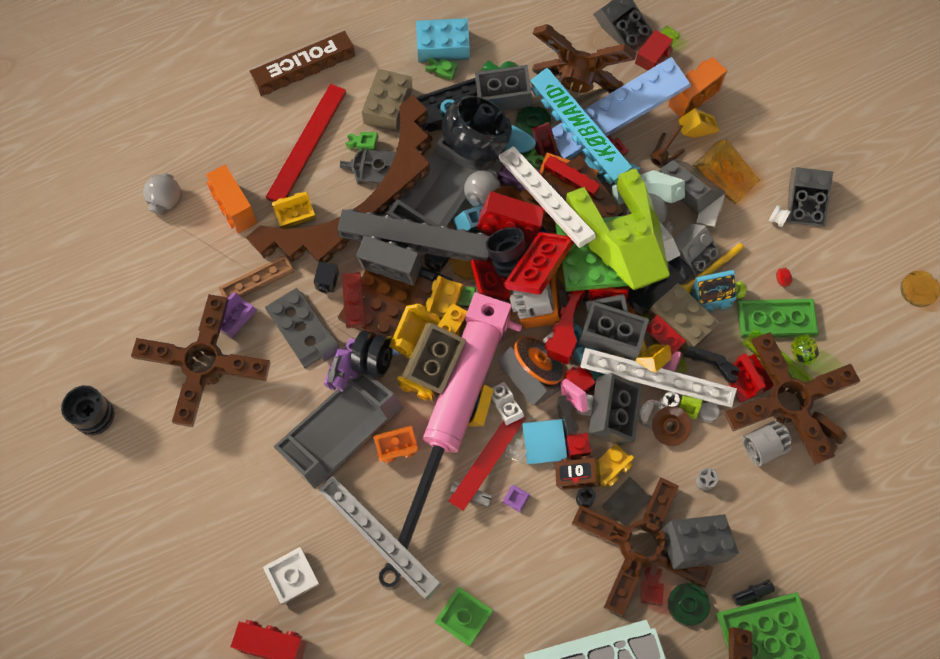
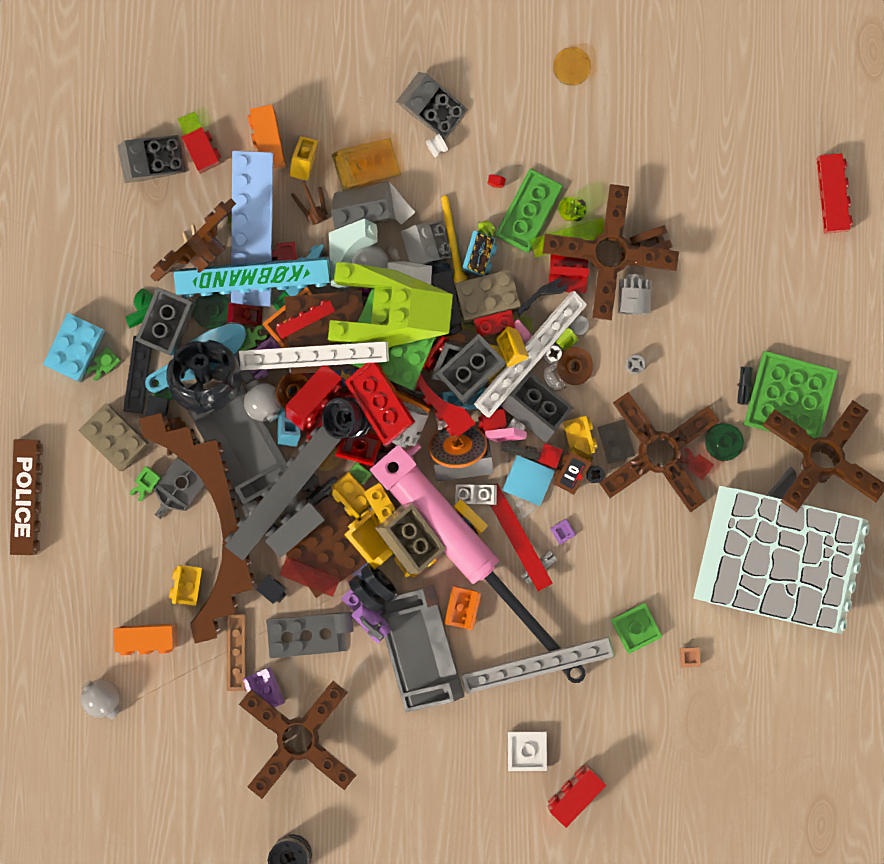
camera: 60 degrees left, 20 degrees up
(306, 143) = (116, 536): red tile -> none
(699, 541) = (684, 406): dark grey brick -> none

